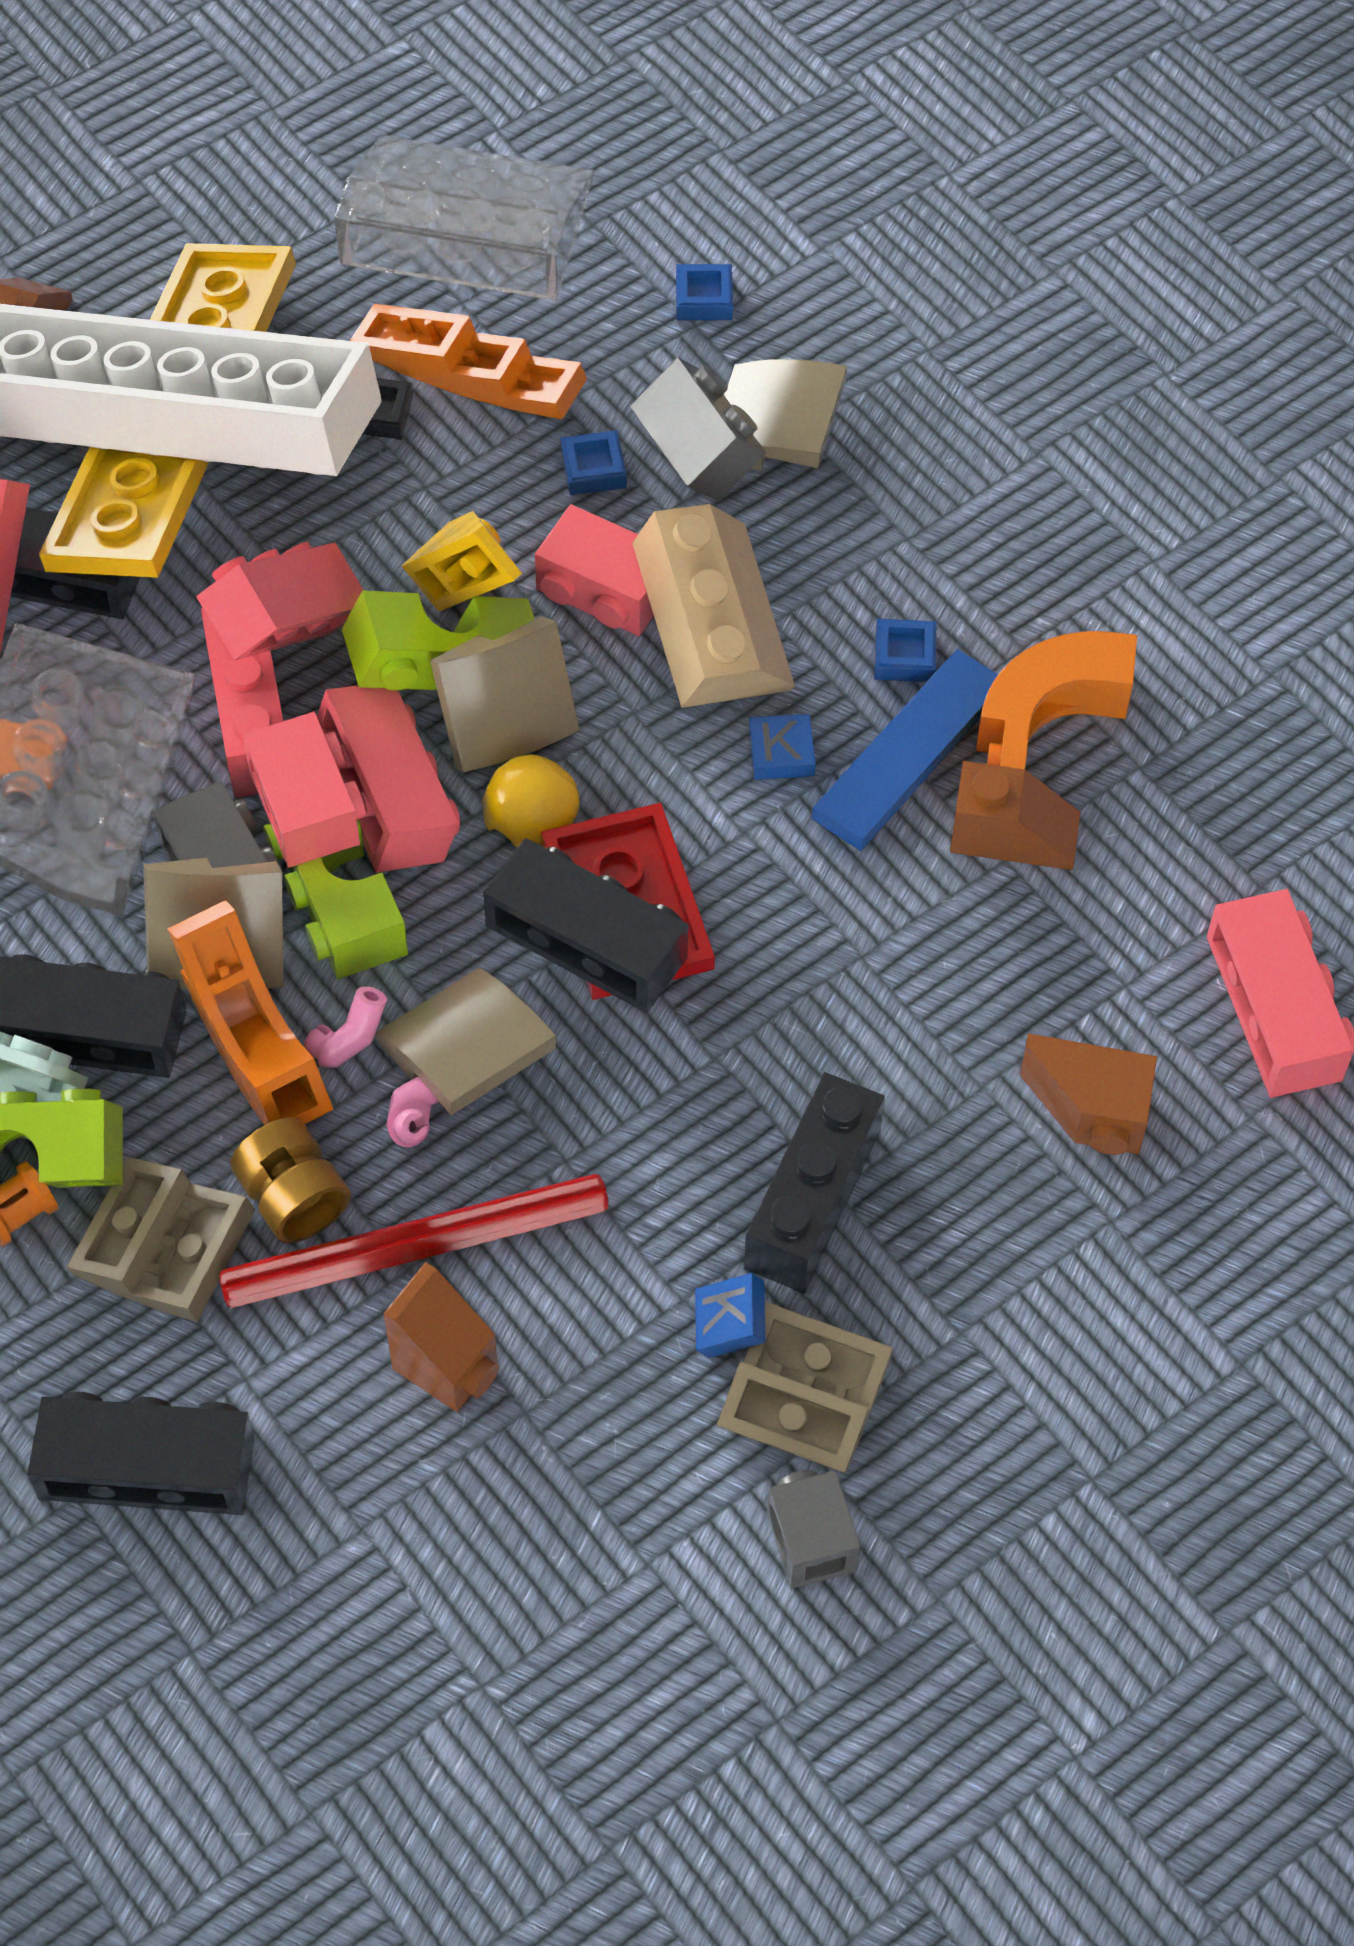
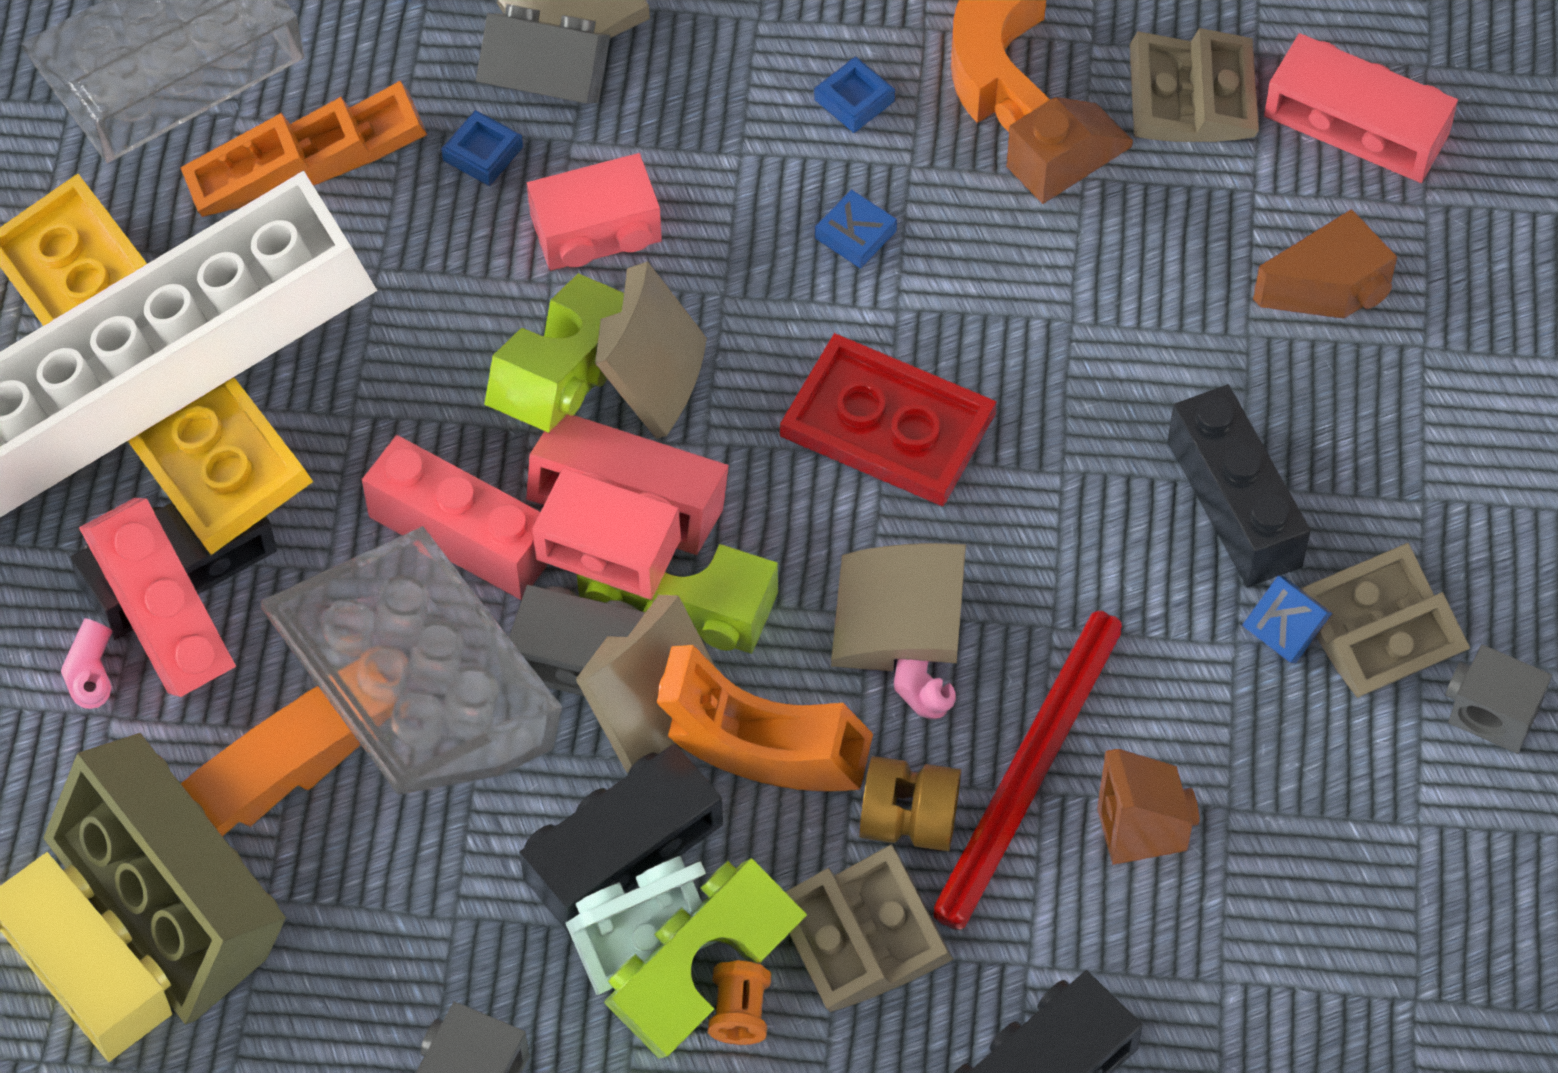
camera: 45 degrees left, 0 degrees up
(280, 598) = (425, 416): coral brick -> none
(354, 1035) = (819, 665): bright pink arm -> none
(461, 562) = (509, 279): yellow slope -> none
(529, 797) = (737, 413): yellow hair -> none
(586, 924) = (902, 451): black brick -> none
(710, 606) = (710, 174): tan slope -> none
(905, 751) = (940, 158): blue tile -> none
(1171, 865) = (1193, 87): none -> dark tan slope

